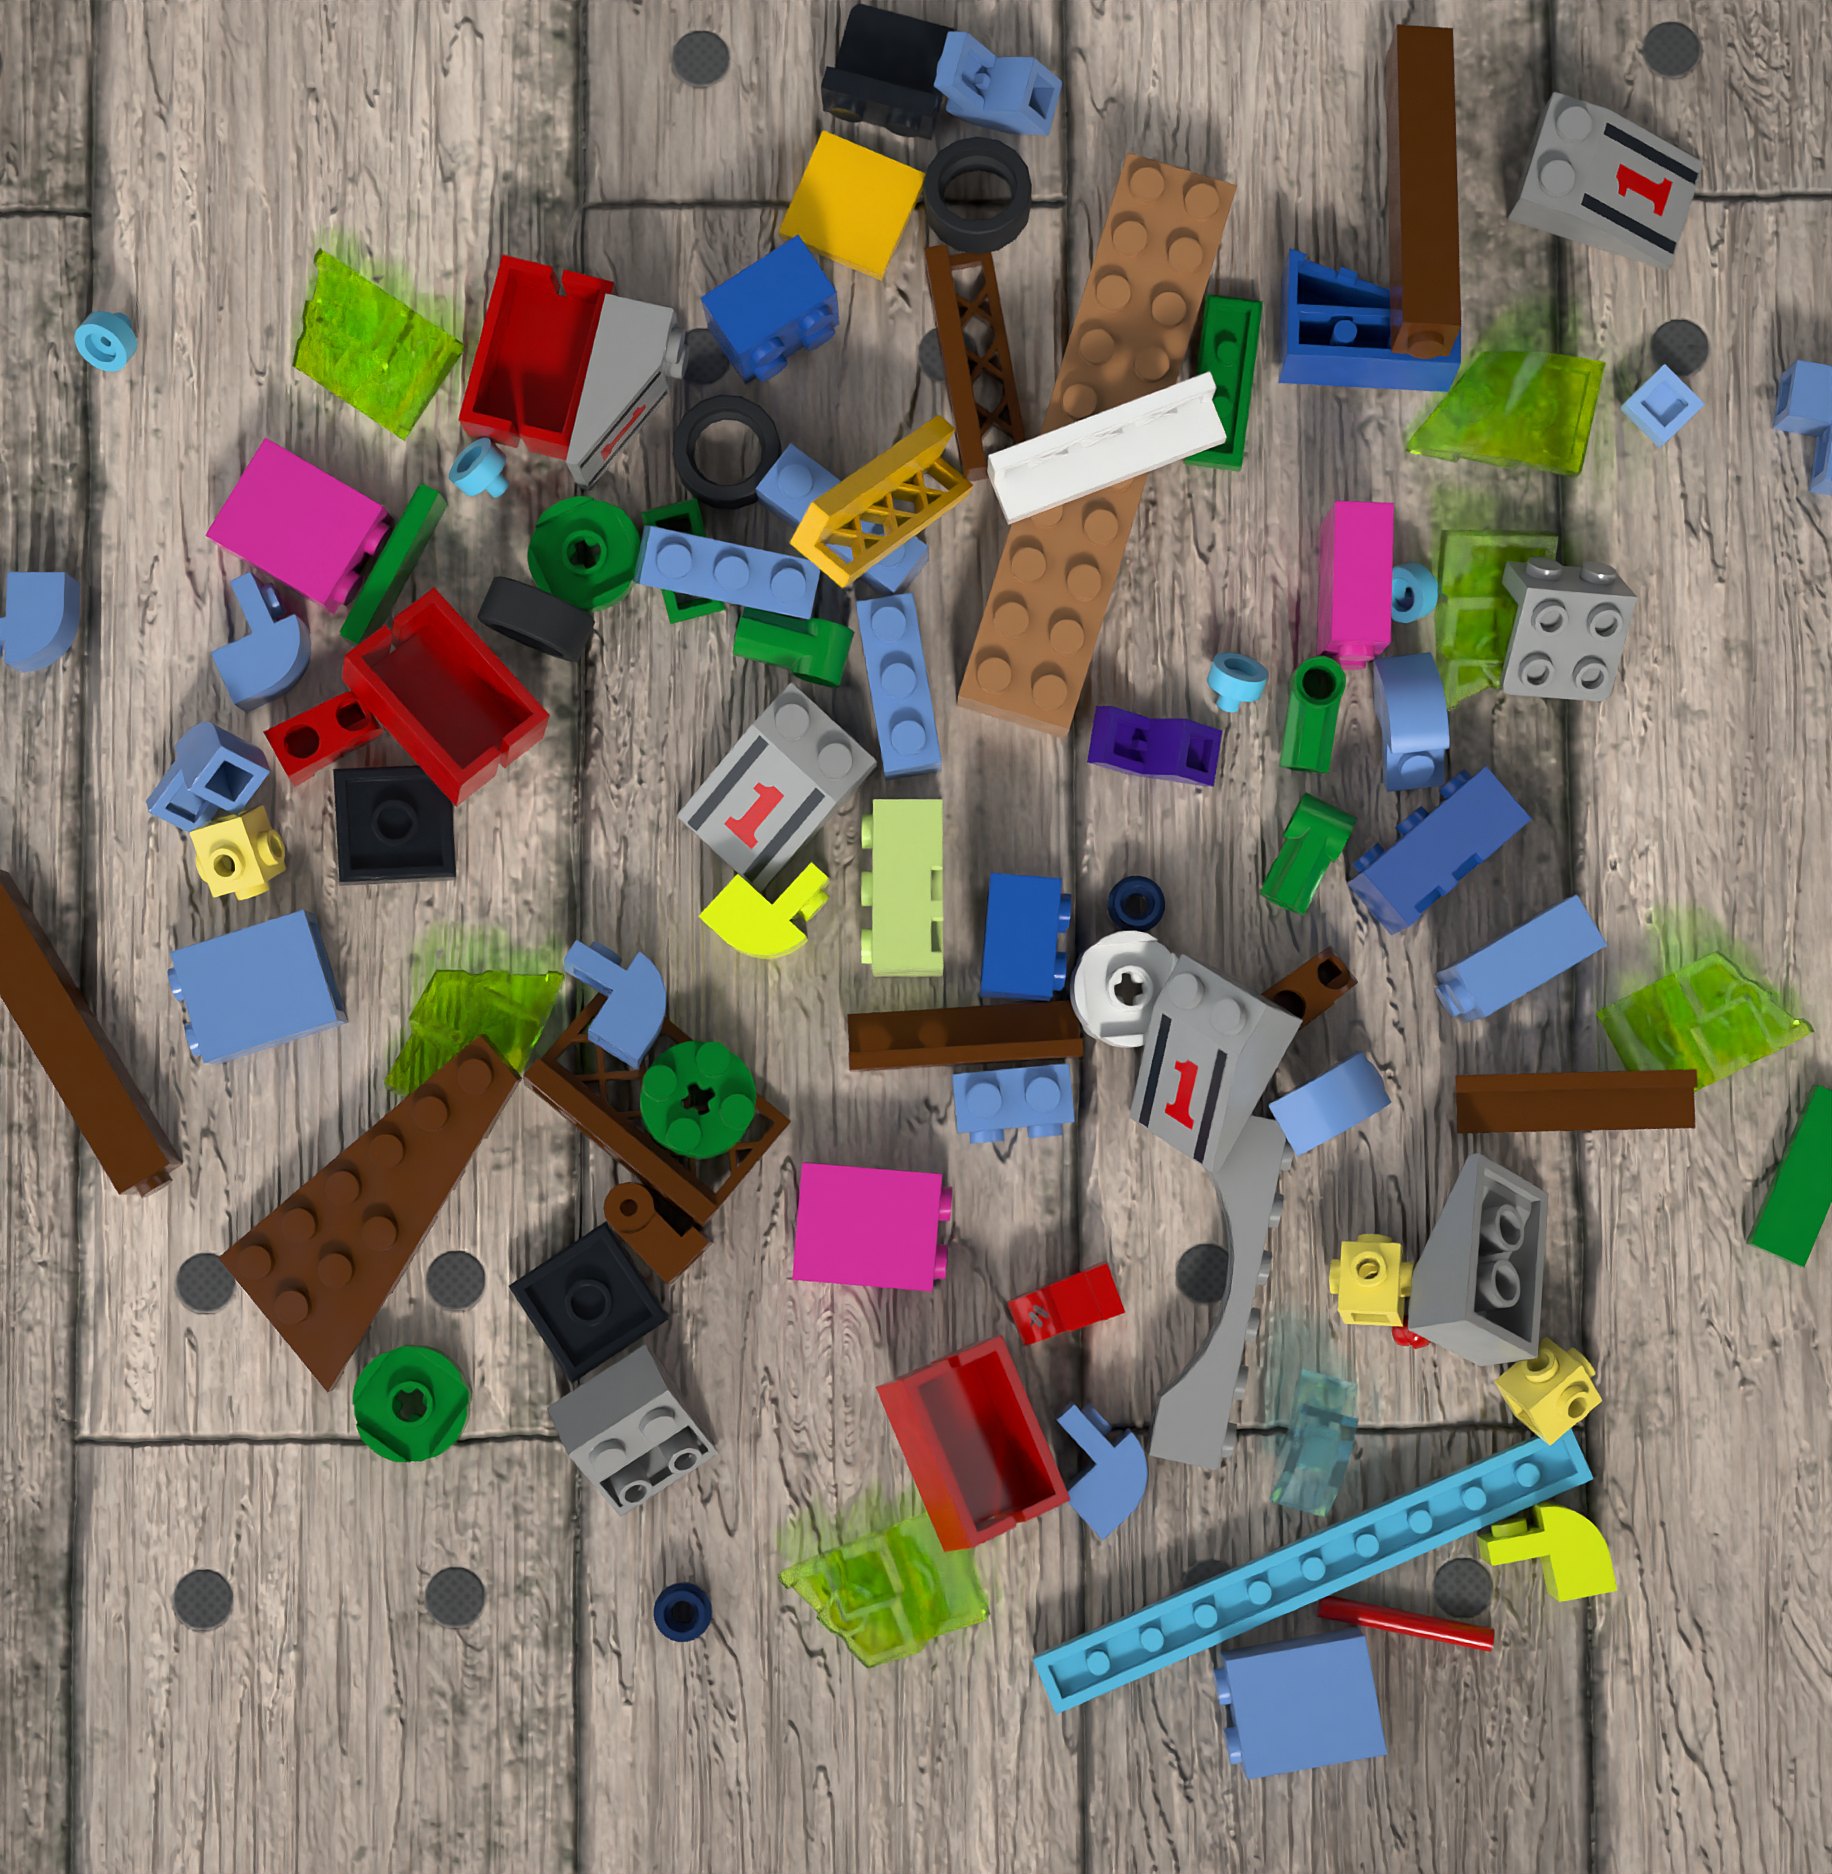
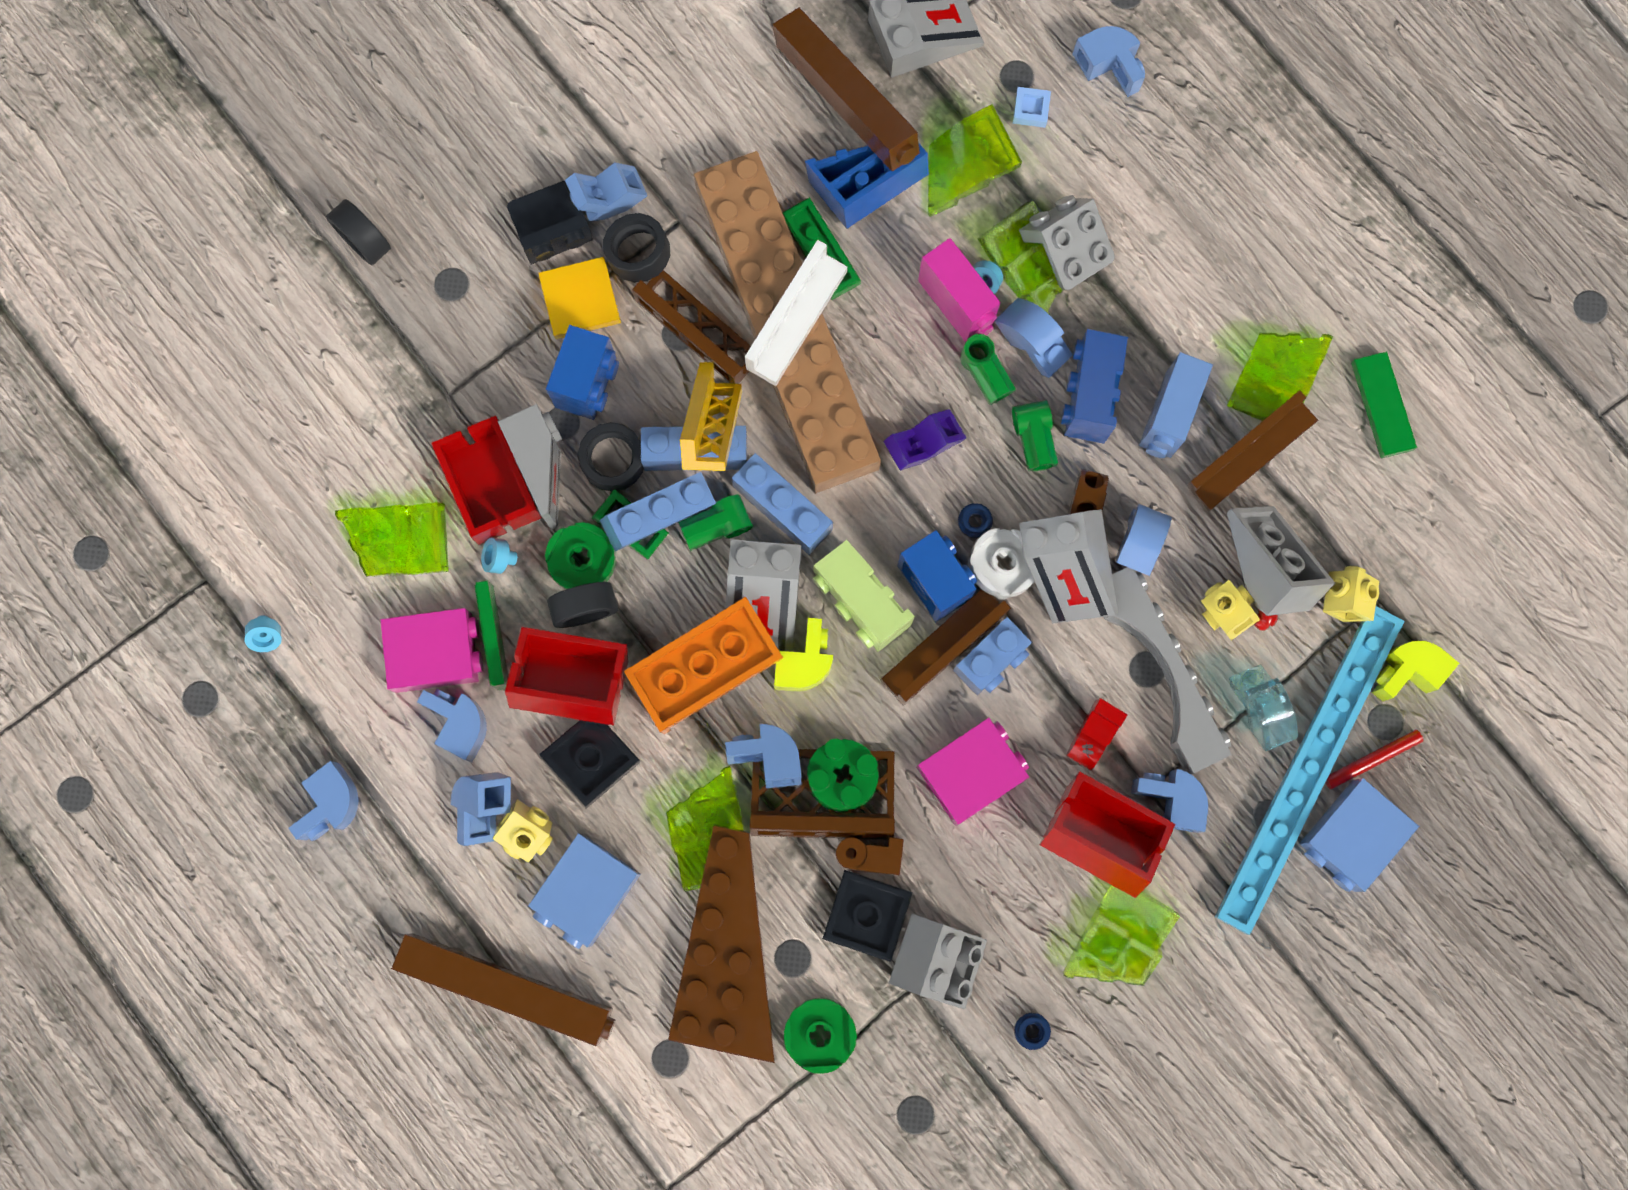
camera: 40 degrees left, 5 degrees down
(322, 735) = (520, 743): red leg -> none
(628, 818) = (703, 665): none -> orange plate
(1236, 680) = (938, 379): medium azure tile -> none

